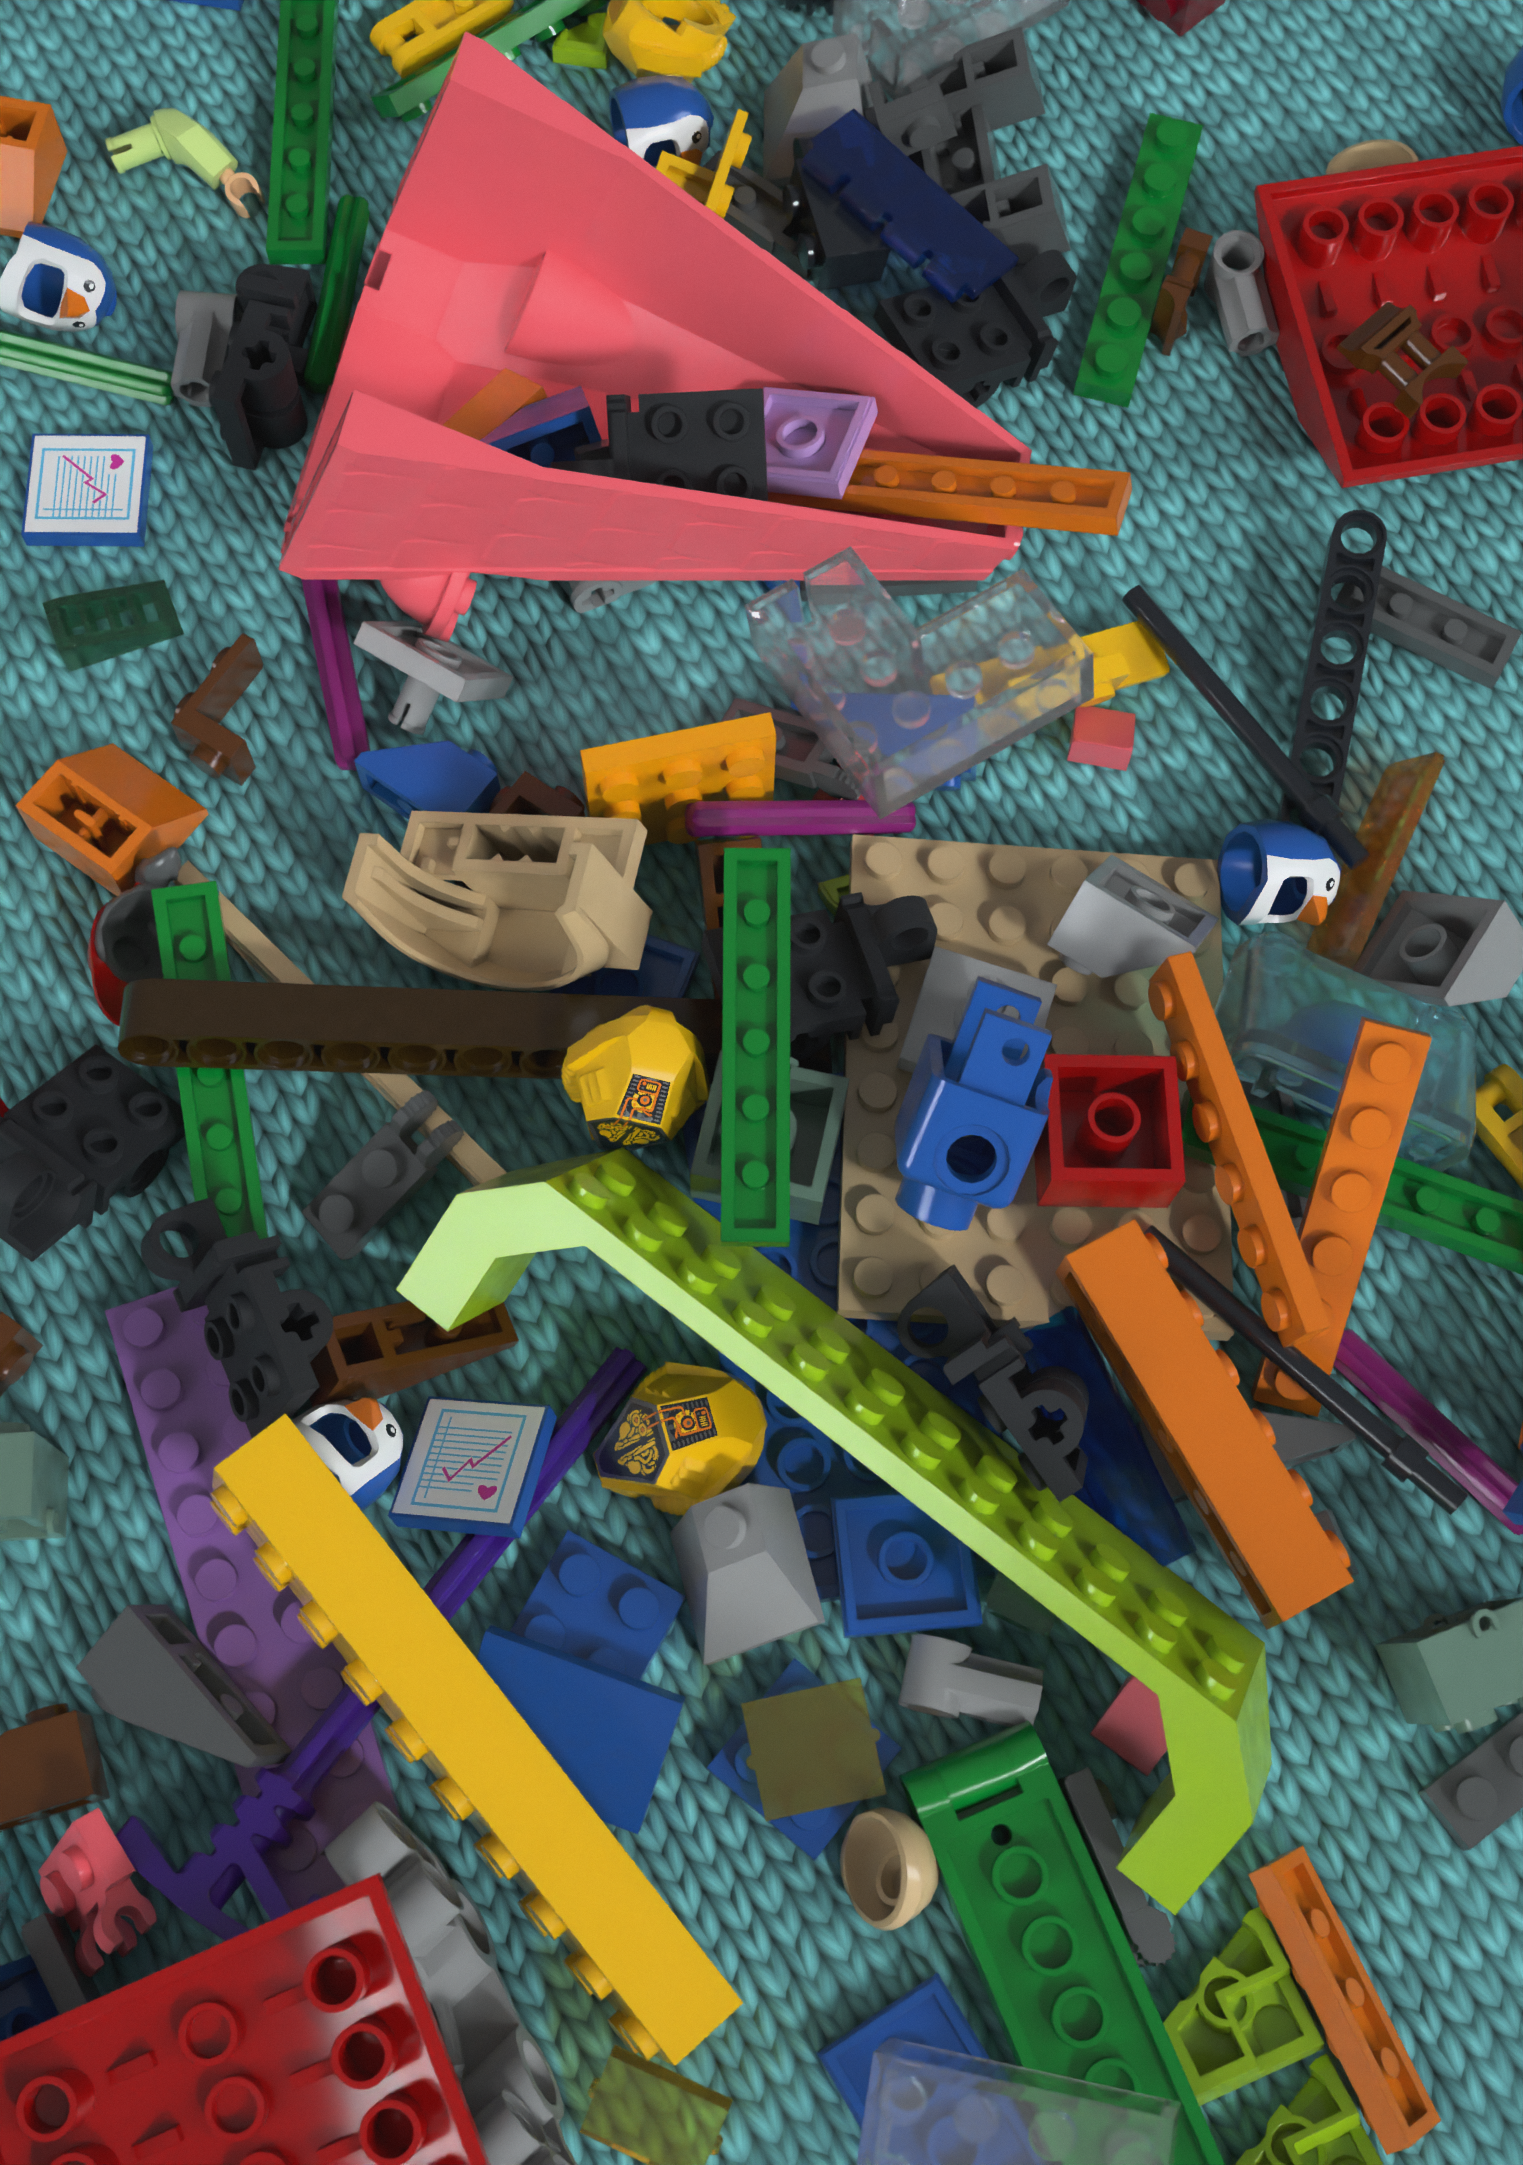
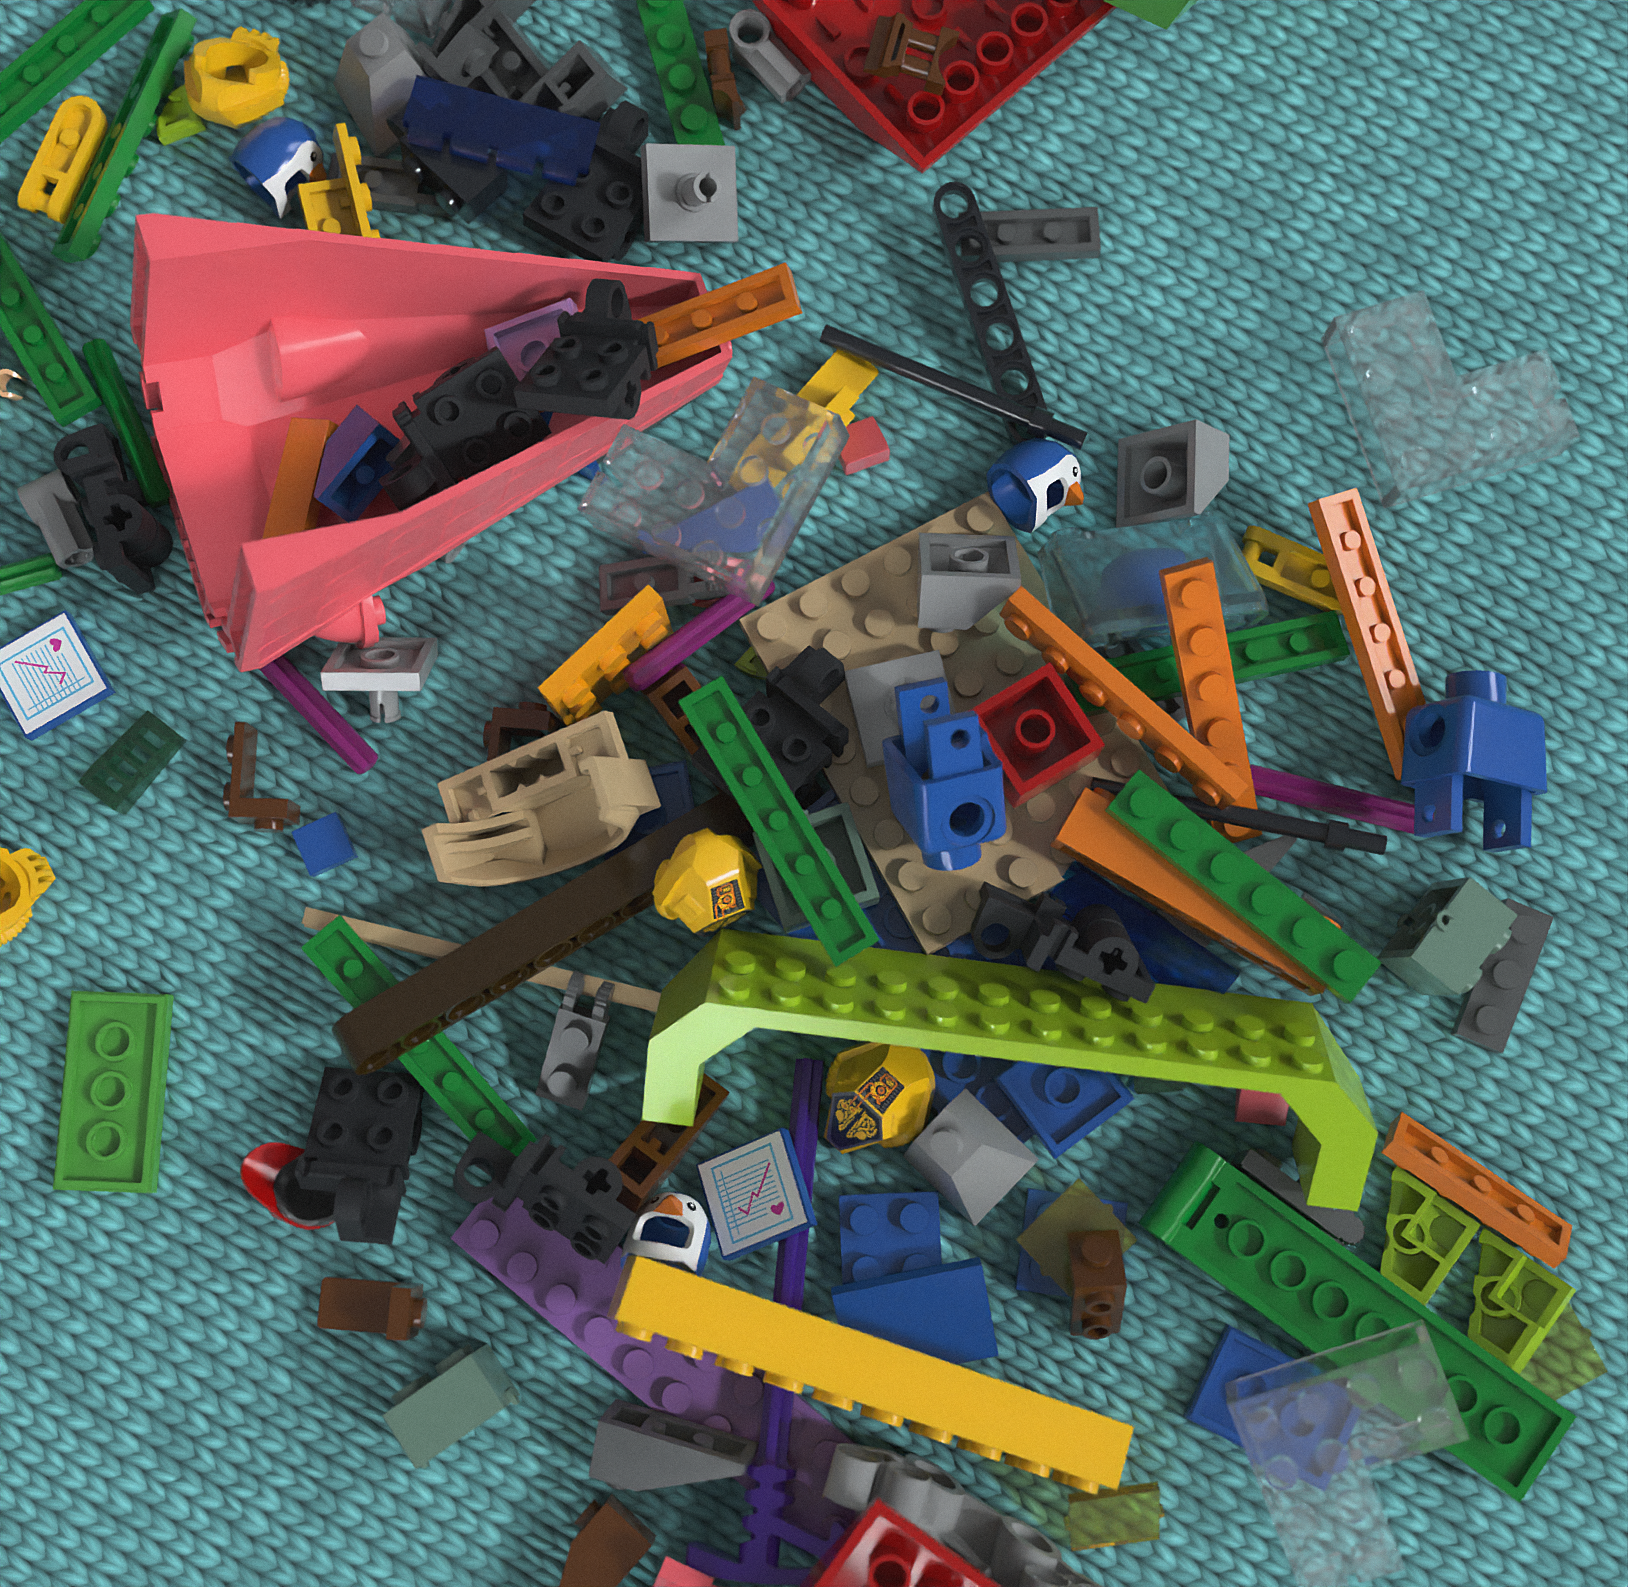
camera: 25 degrees left, 10 degrees up
(108, 814) = (230, 903): orange slope -> none
(125, 936) = (301, 988): dark grey hair -> none
(253, 818) = (324, 844): none -> blue tile
(429, 778) = (434, 749): blue slope -> none
(803, 1815) = (1096, 1282): none -> reddish brown bracket
(856, 457) = (595, 361): none -> black plate
(888, 1867) = (1164, 1283): tan piece -> none
(952, 1681) = (1135, 1142): light grey piece -> none
(1071, 379) = (689, 193): none -> light grey tile
(1257, 1441) = (1243, 887): none -> green plate
(1385, 835) = (1089, 410): clear orange slope -> none

